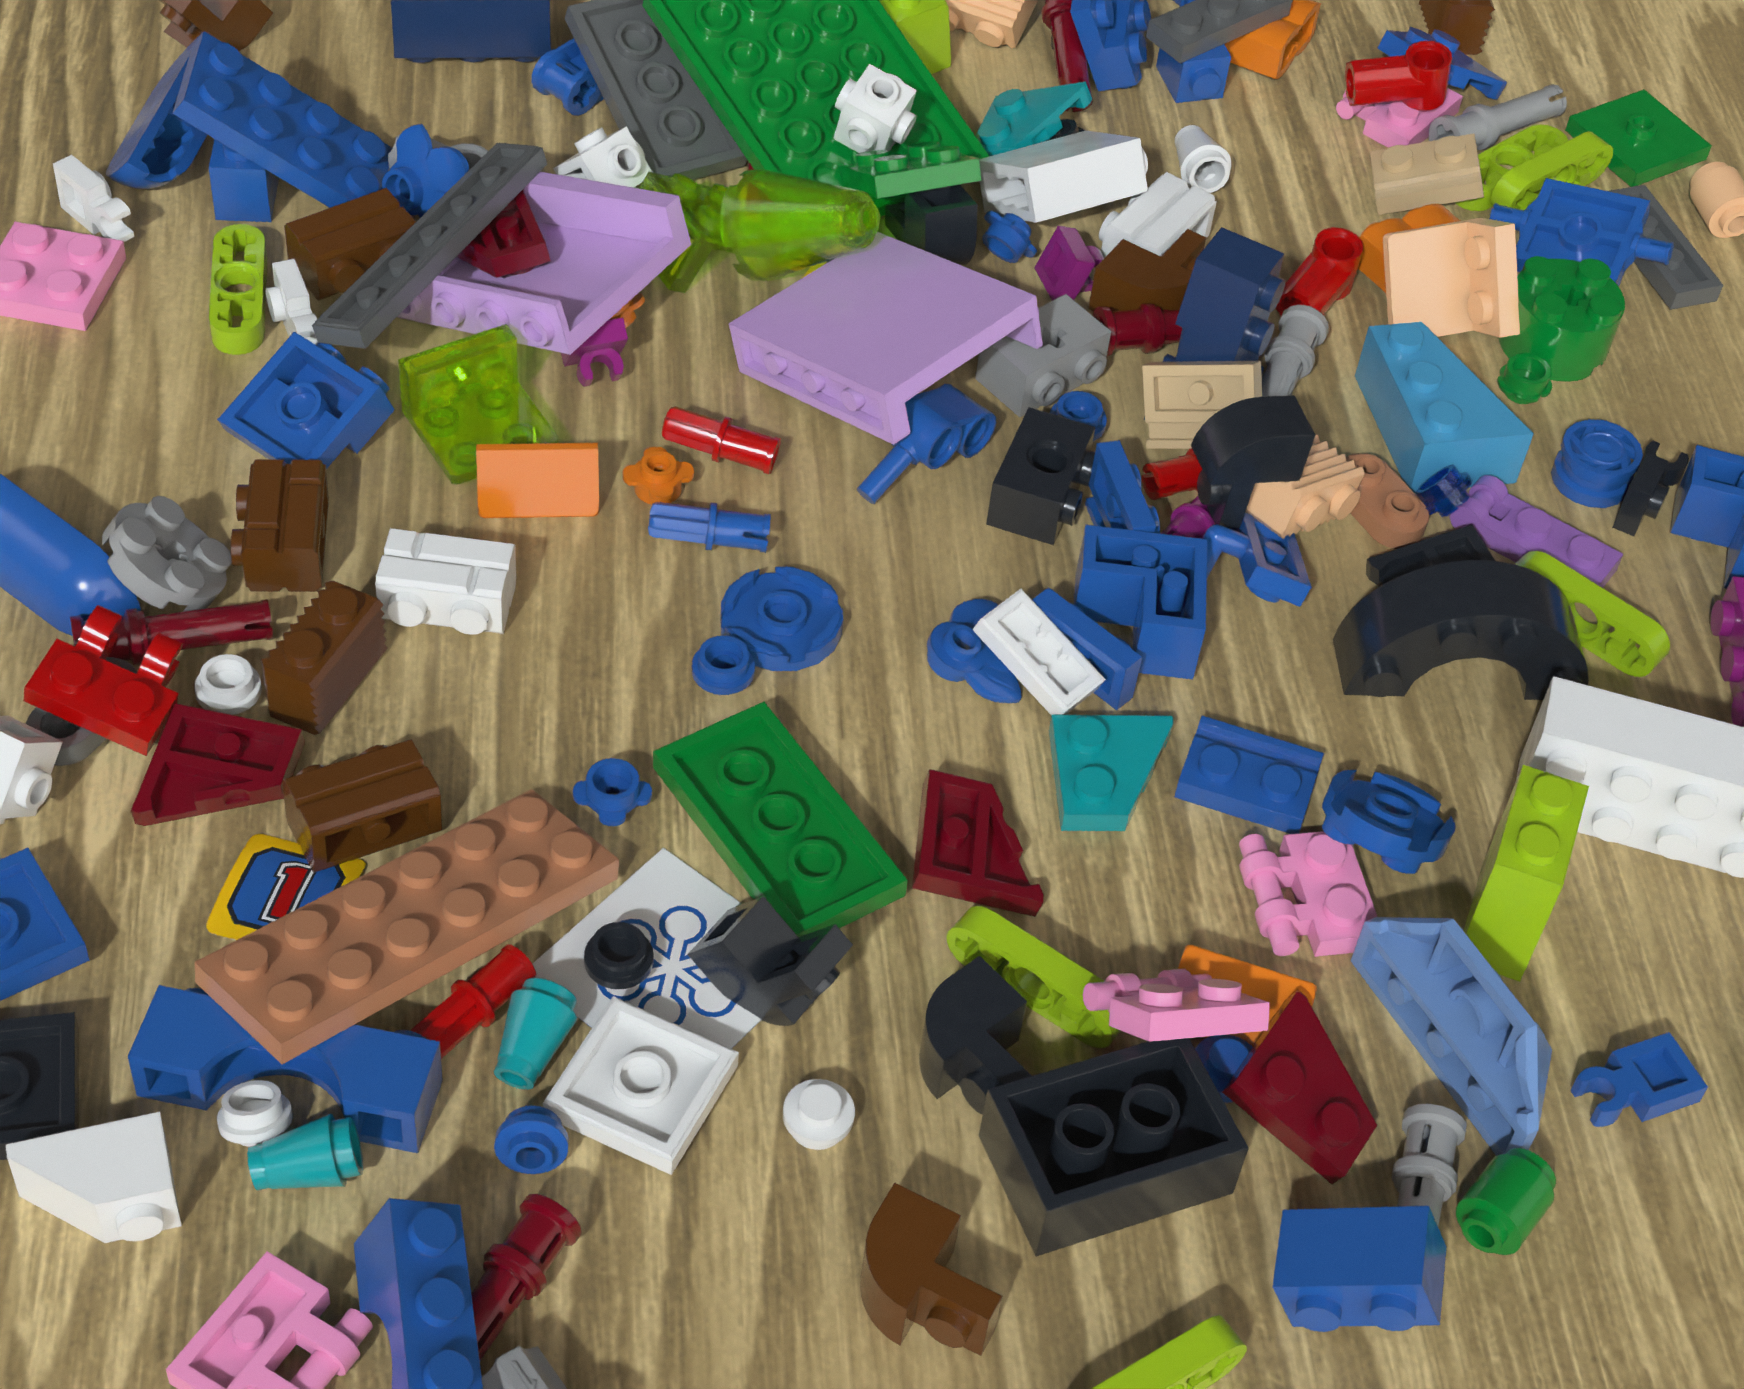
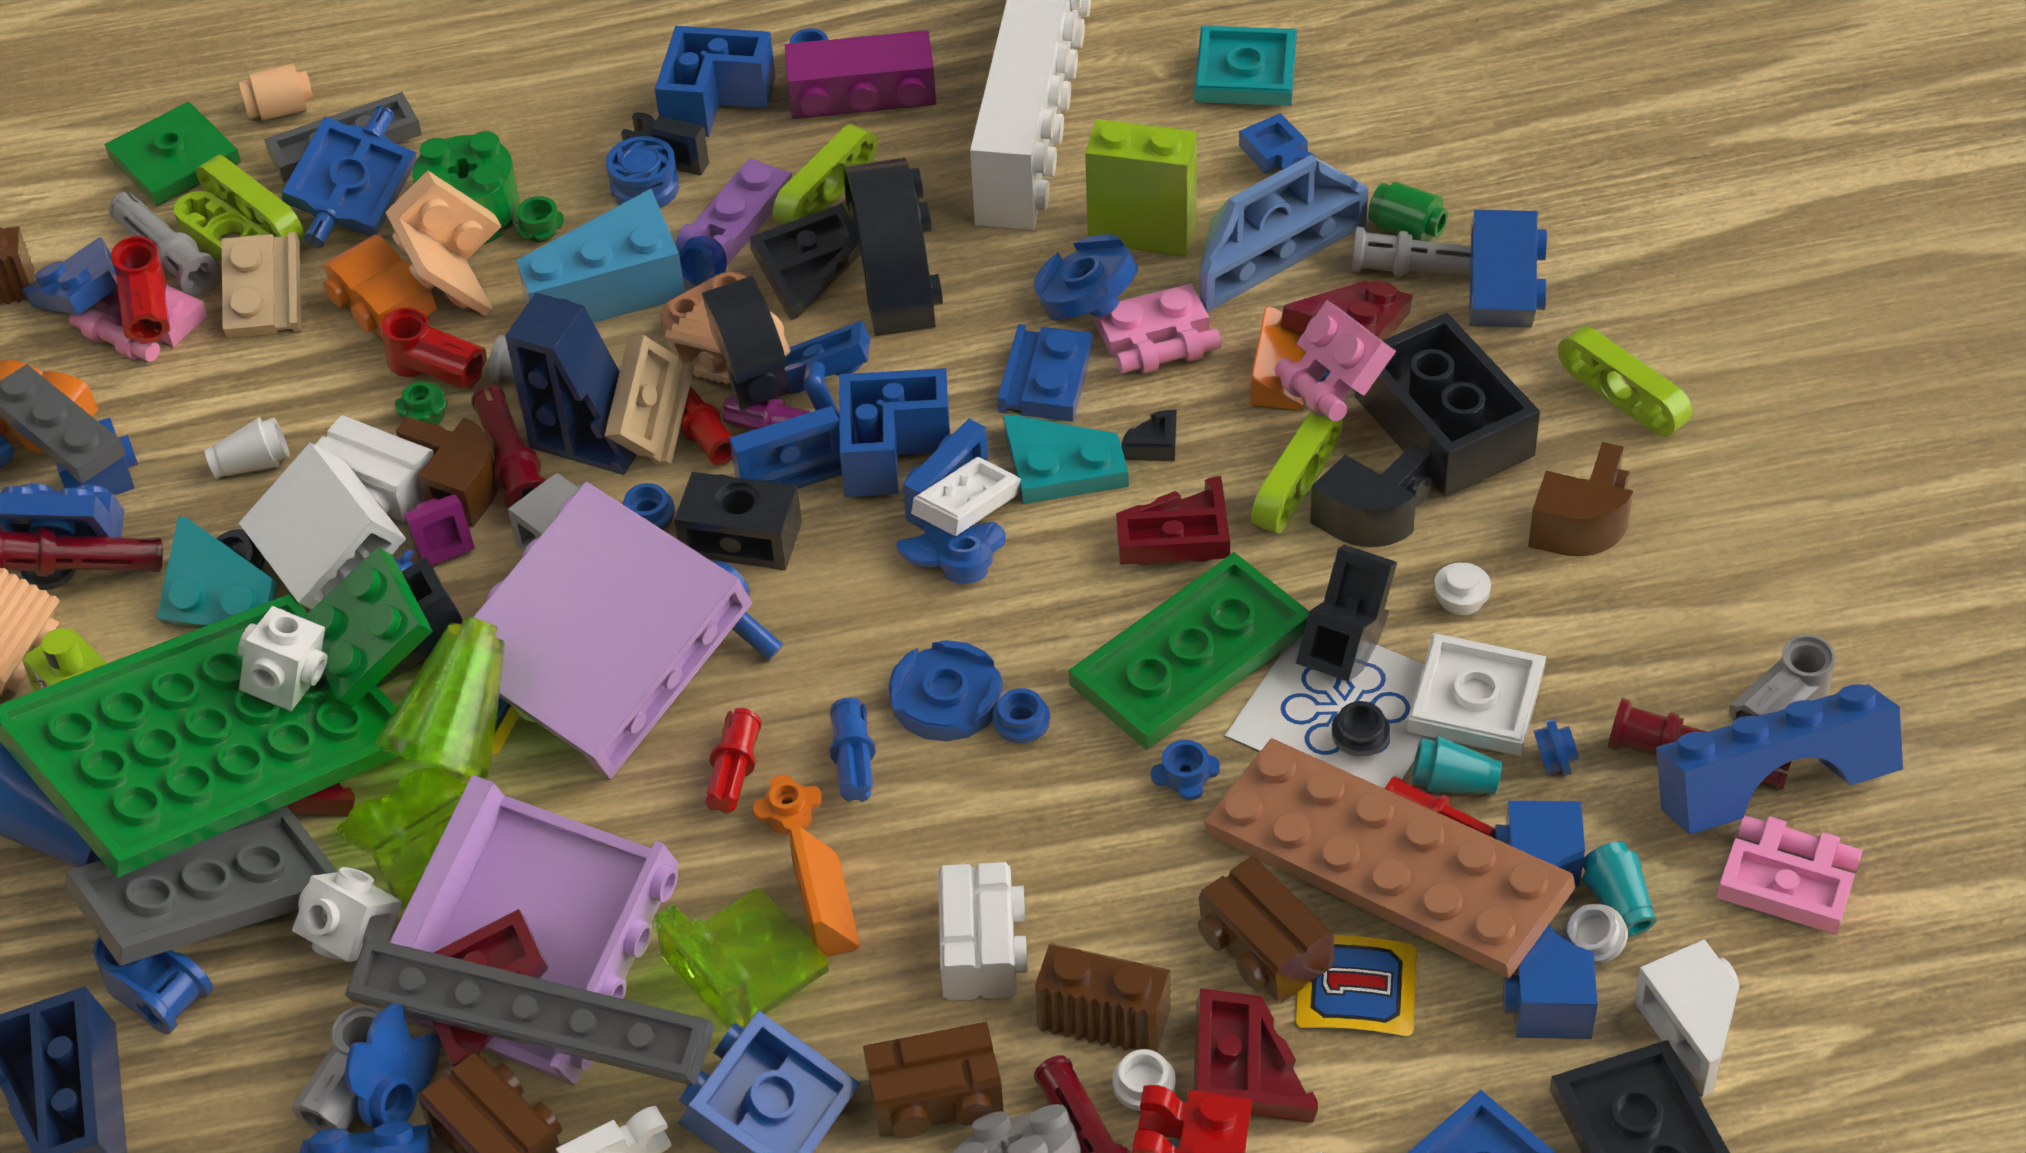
camera: 90 degrees left, 0 degrees up
(1129, 860) = (1152, 439): none -> black tile

